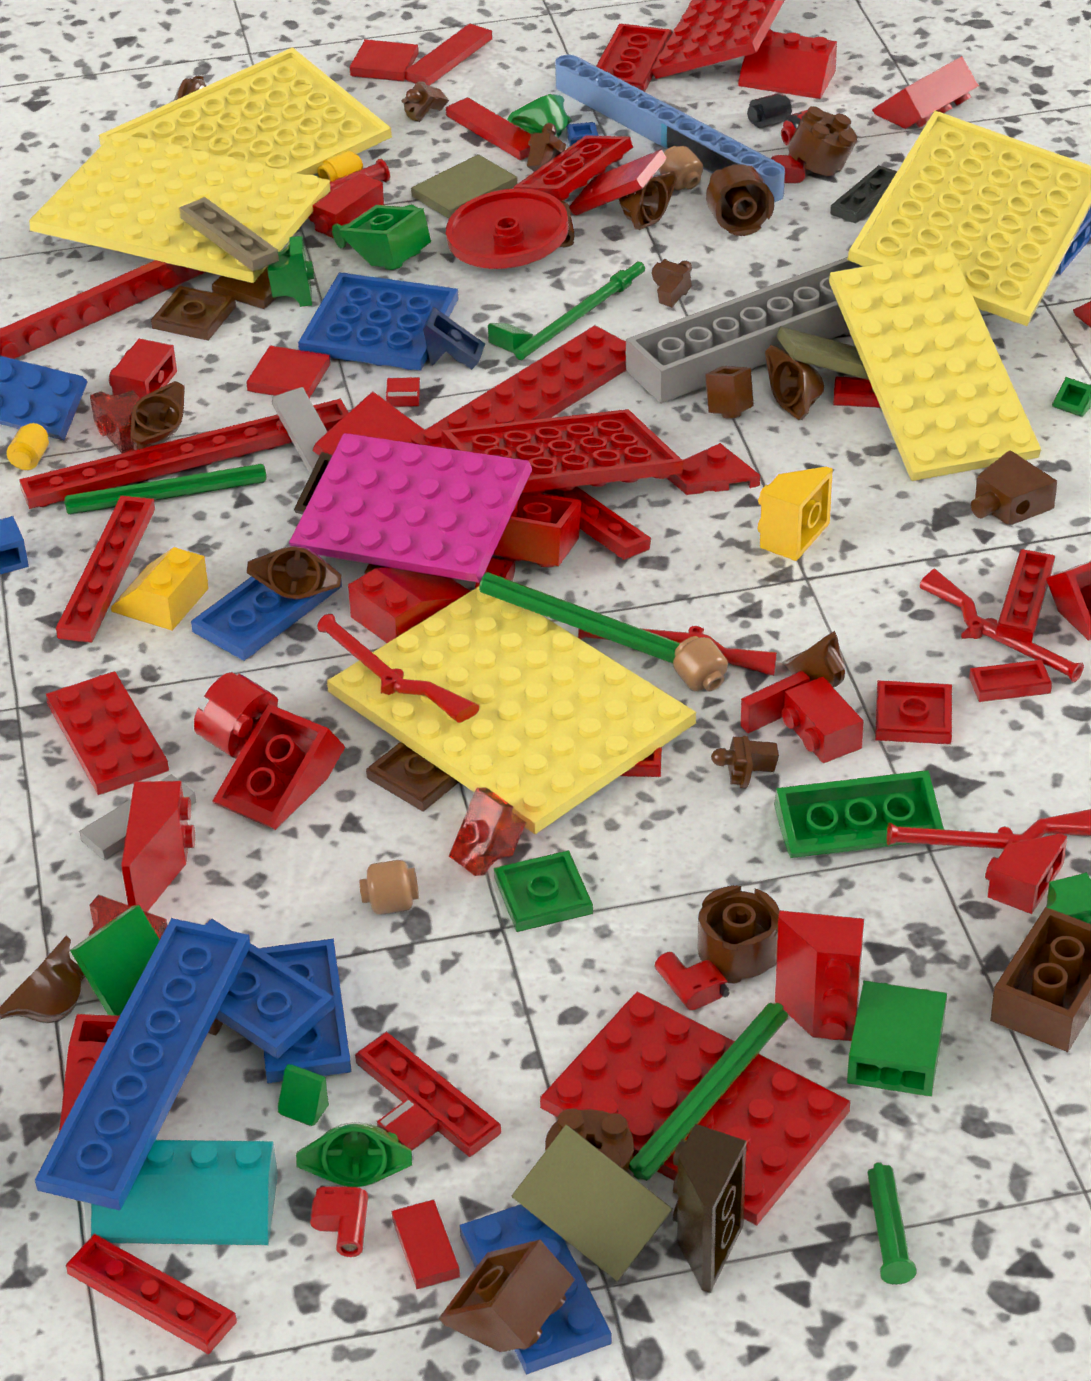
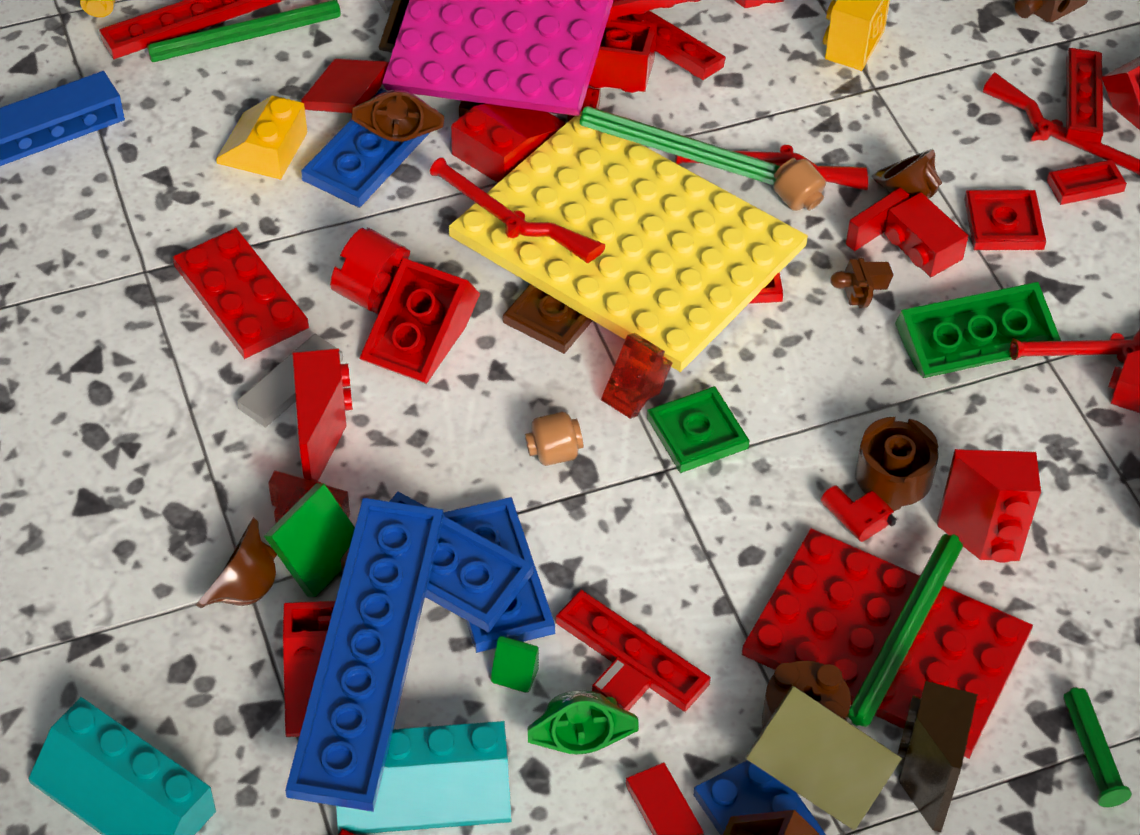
camera: 10 degrees left, 10 degrees up
(105, 569) = (204, 120): red plate -> none
(251, 541) = (345, 85): none -> red tile
(342, 1212) = (579, 782): red piece -> none
(897, 1038) = (1066, 559): green brick -> none

